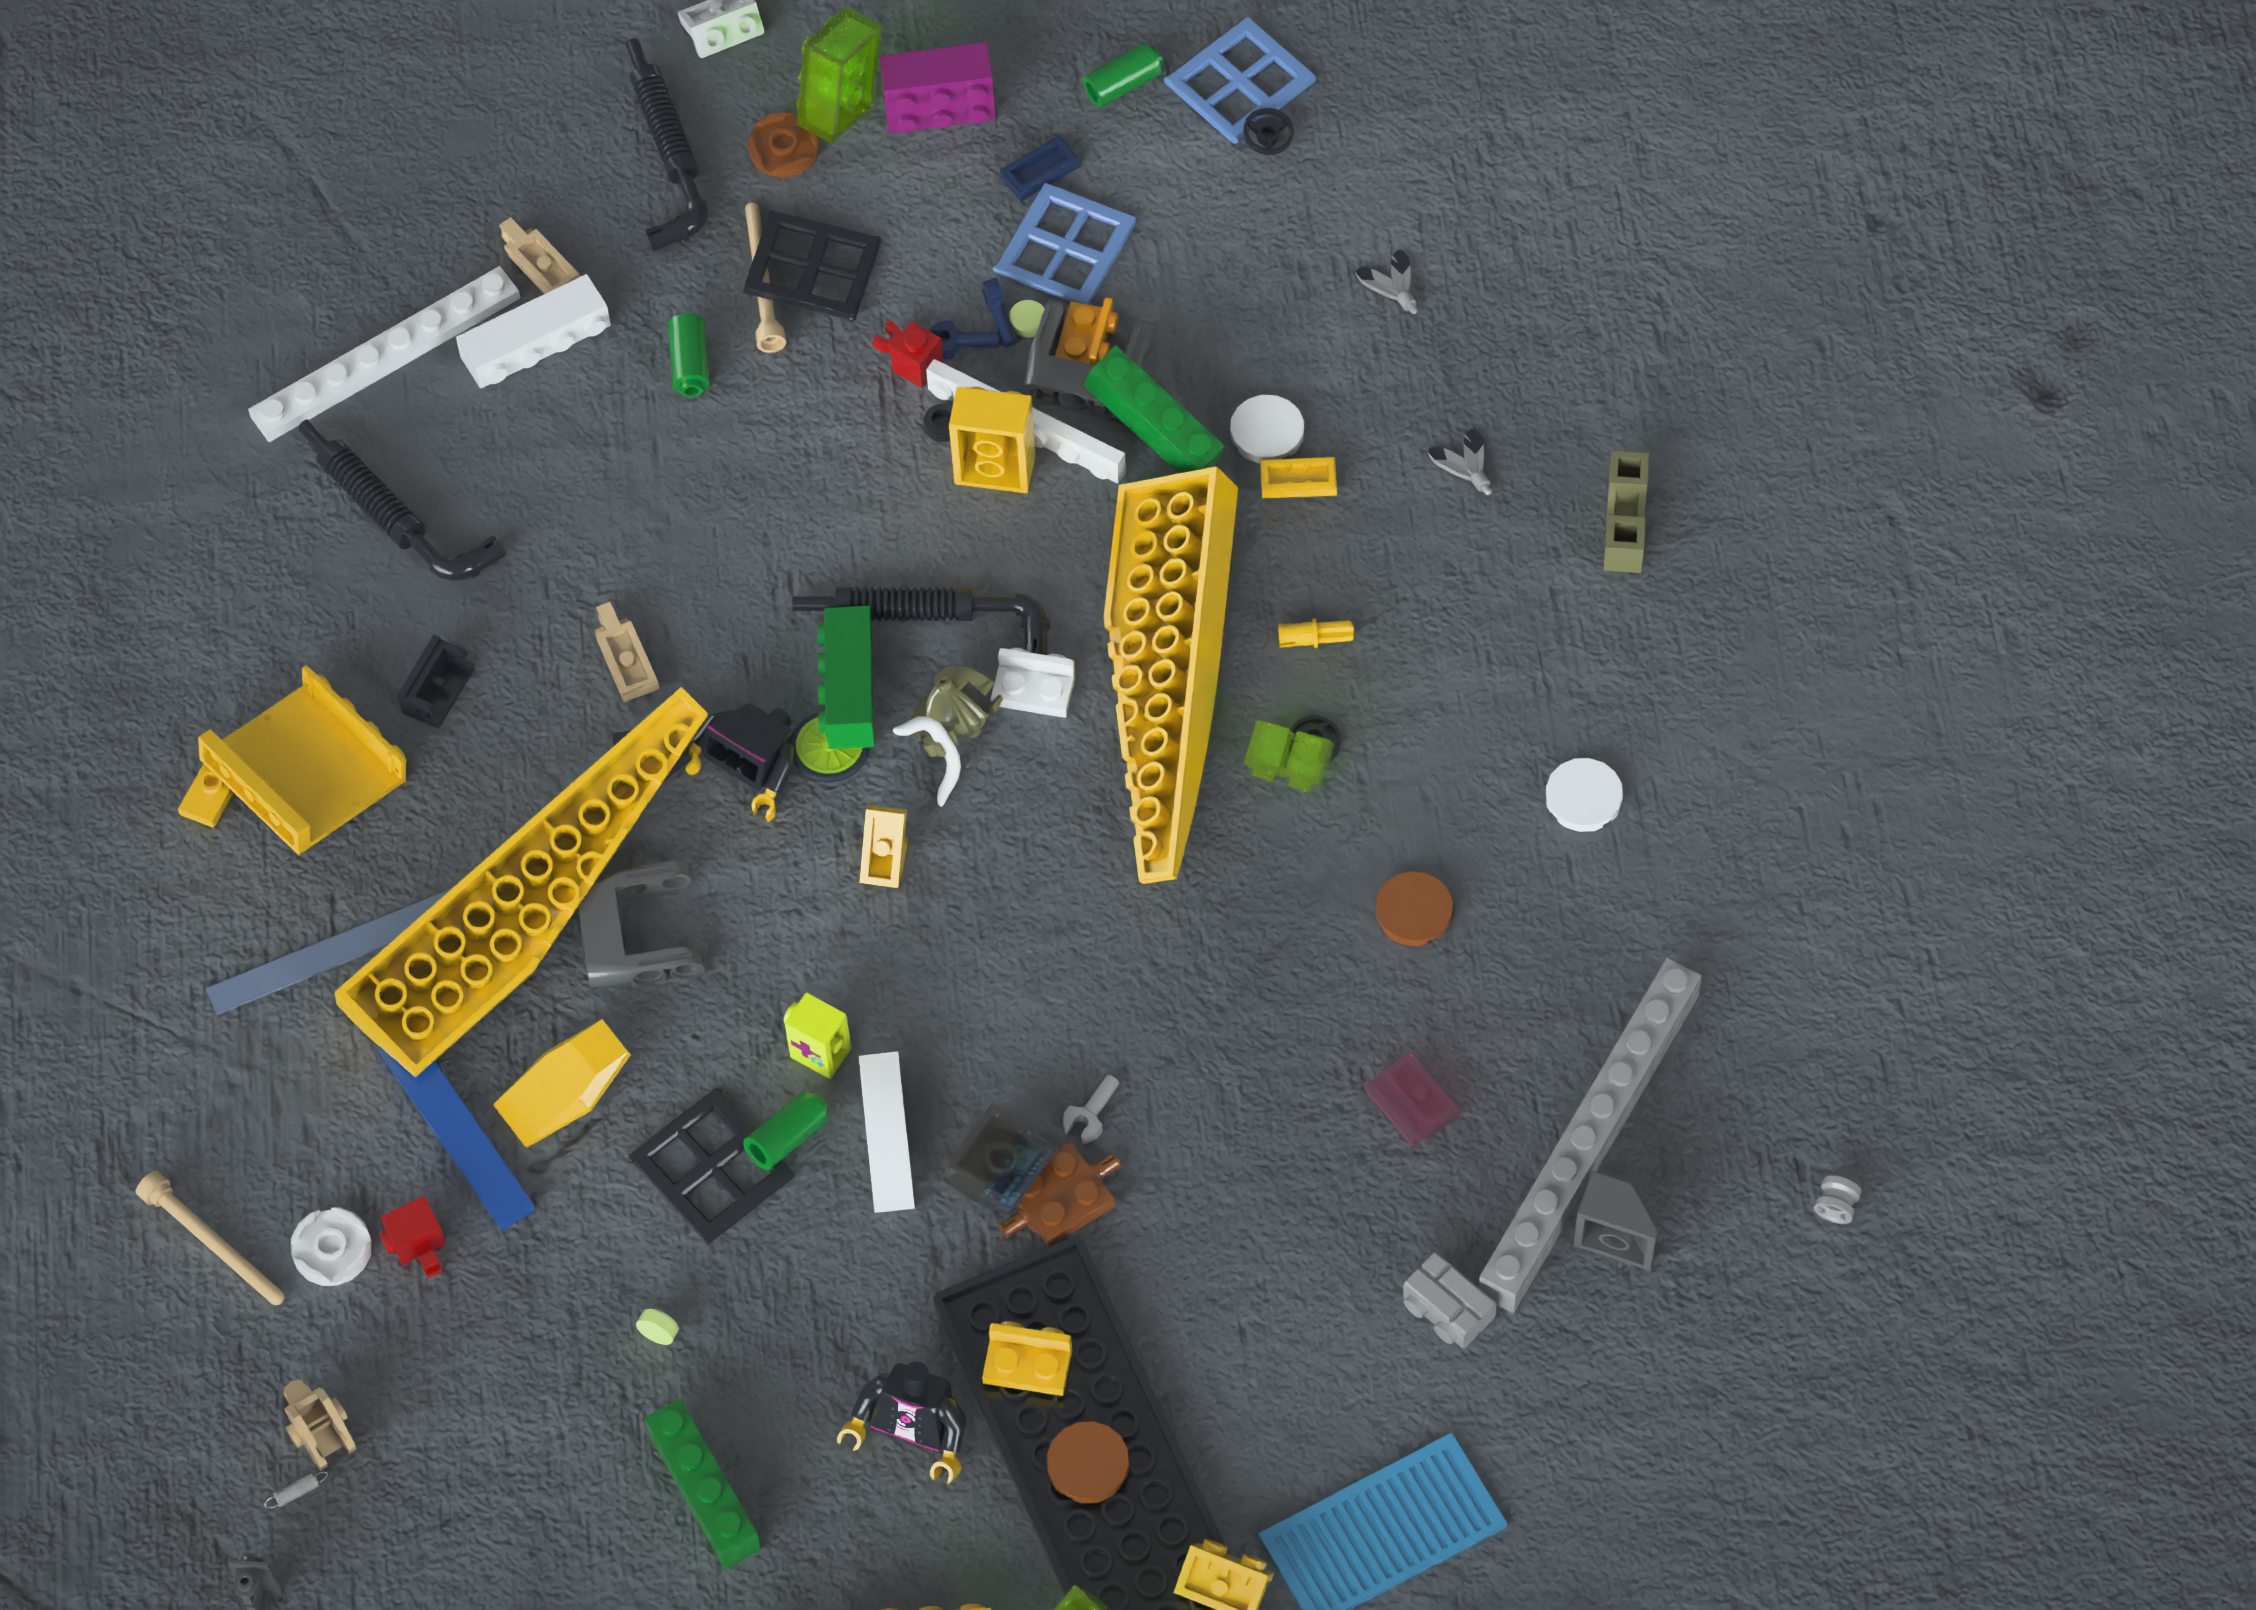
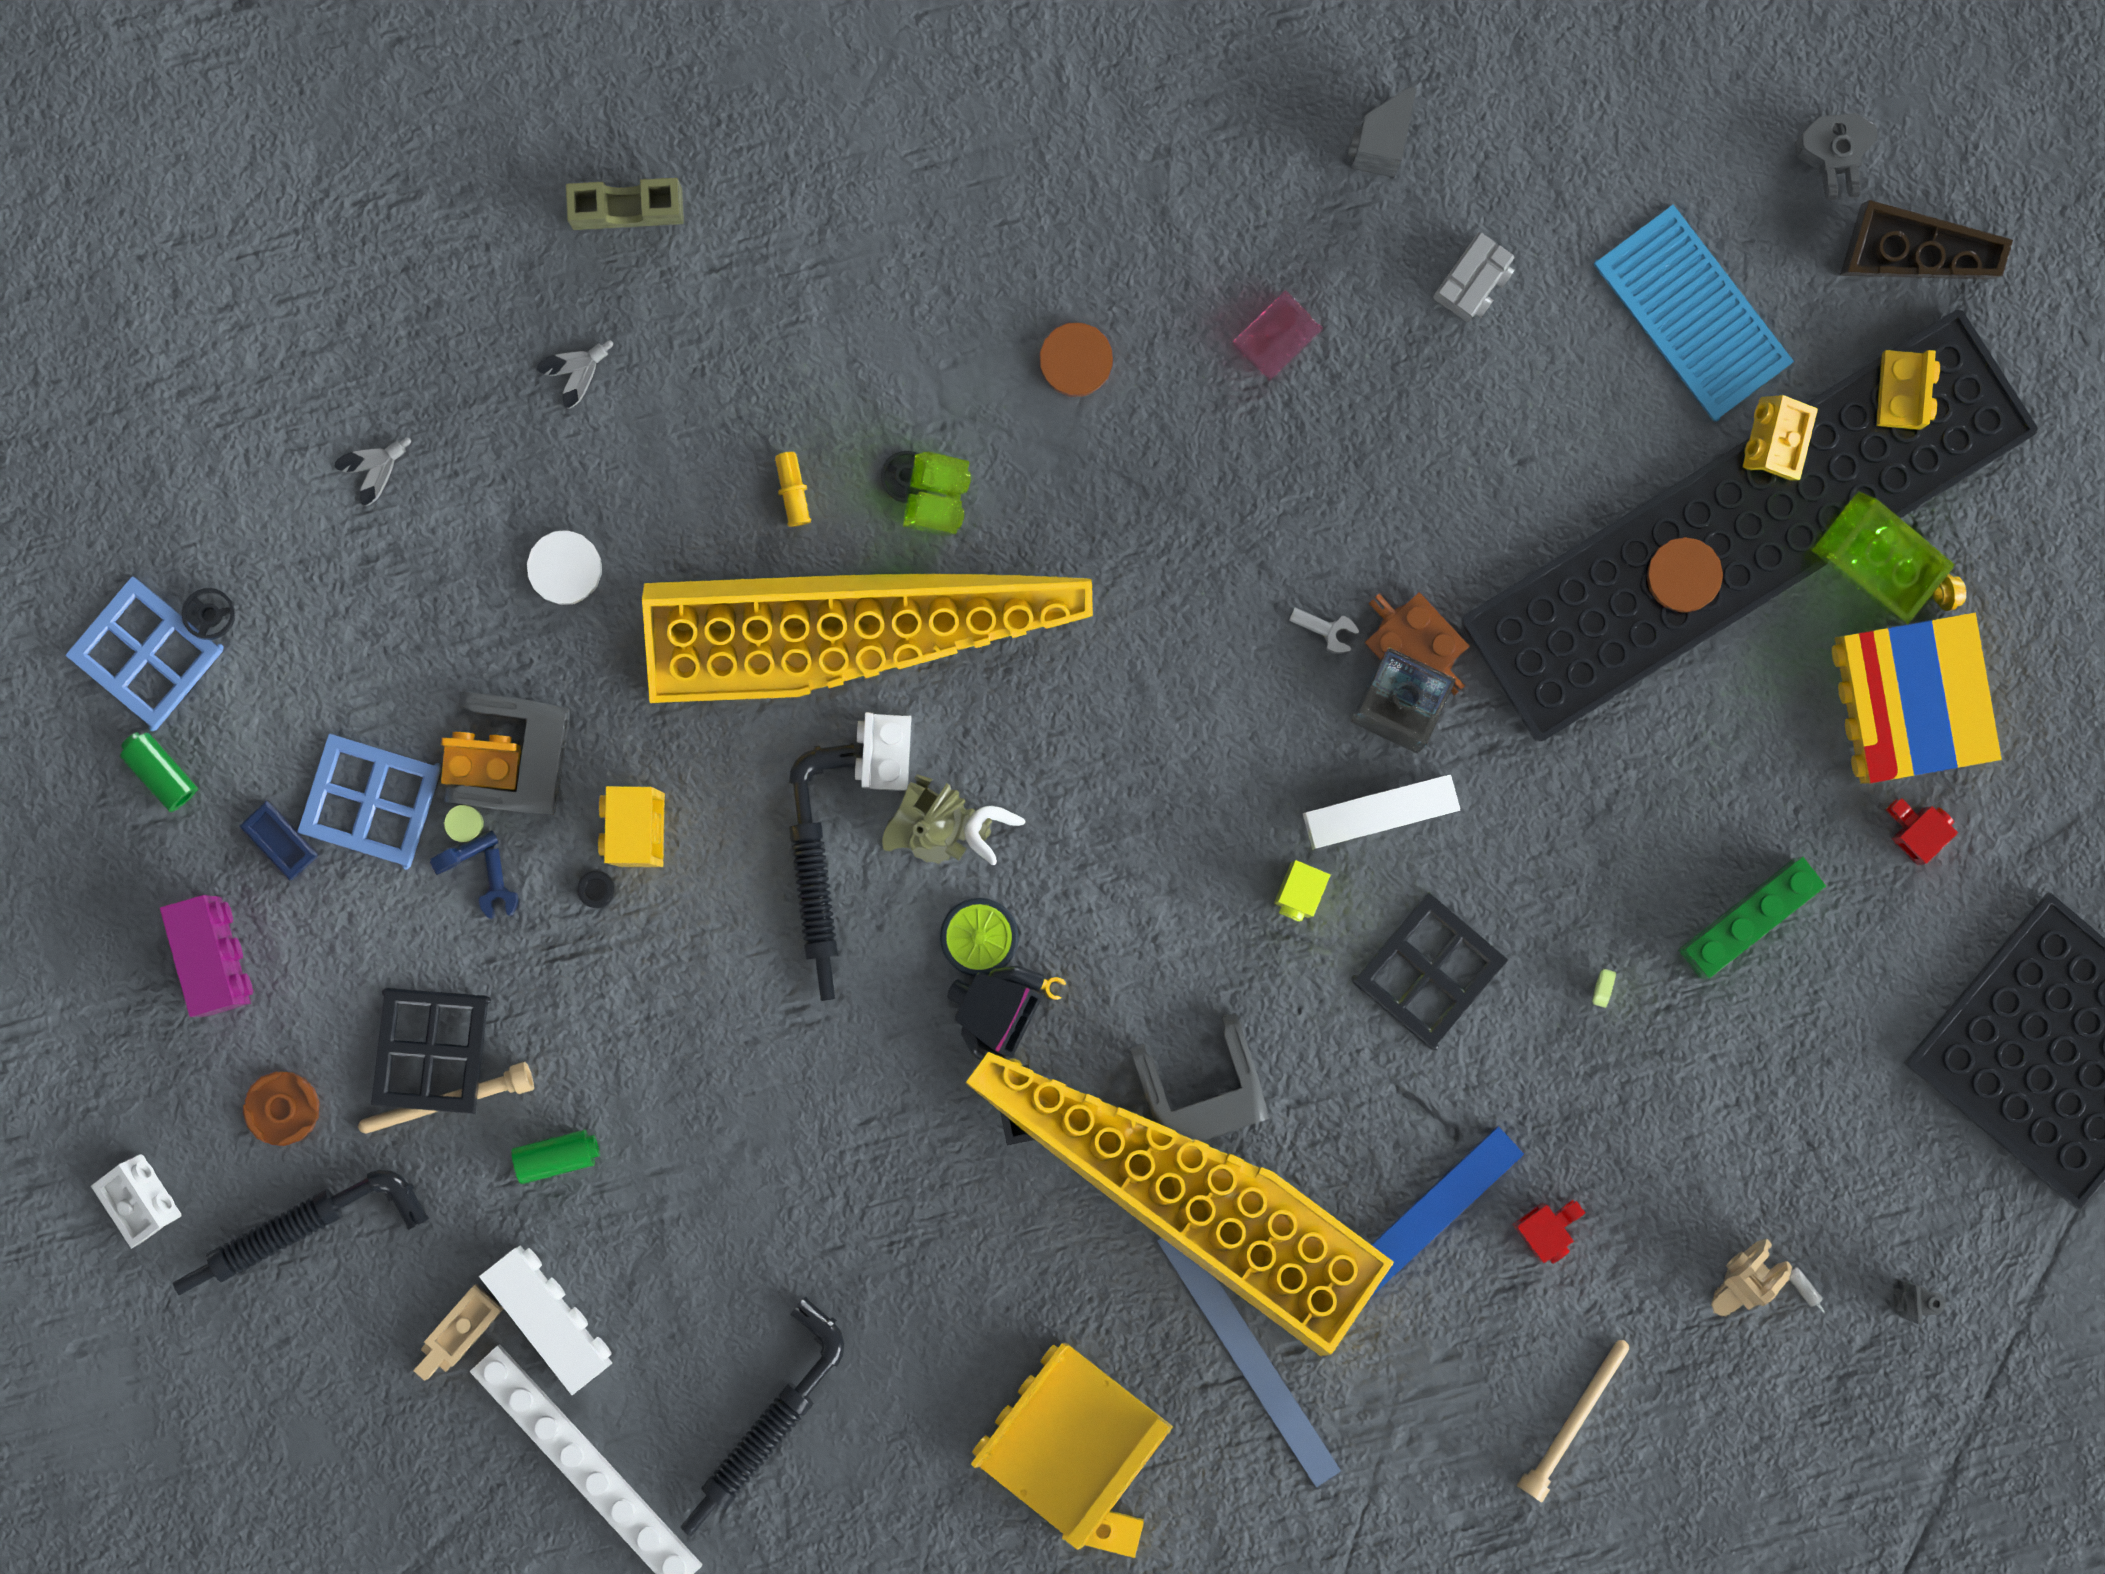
camera: 100 degrees left, 25 degrees up
(331, 1246) = (1563, 1307): white tile -> none
(435, 682) = (962, 1334): black hinge -> none
(563, 1083) = (1374, 1123): yellow piece -> none
(624, 655) = (906, 1155): tan hinge -> none
(786, 1130) = (1394, 903): green brick -> none
(838, 74) = (212, 1058): clear neon green brick -> none
(848, 677) = (911, 928): green brick -> none
(883, 846) = (1087, 864): slope -> none
(910, 350) = (525, 929): red brick -> none
(912, 1408) = (1656, 741): black torso -> none
(1027, 1358) = (1597, 643): yellow bracket -> none
(1049, 432) = (586, 820): white plate -> none
(1152, 413) = (579, 674): green brick -> none
(1298, 477) = (619, 528): yellow plate -> none
(1584, 794) = (933, 215): white tile -> none
(1589, 1135) = (1292, 168): light grey brick -> none

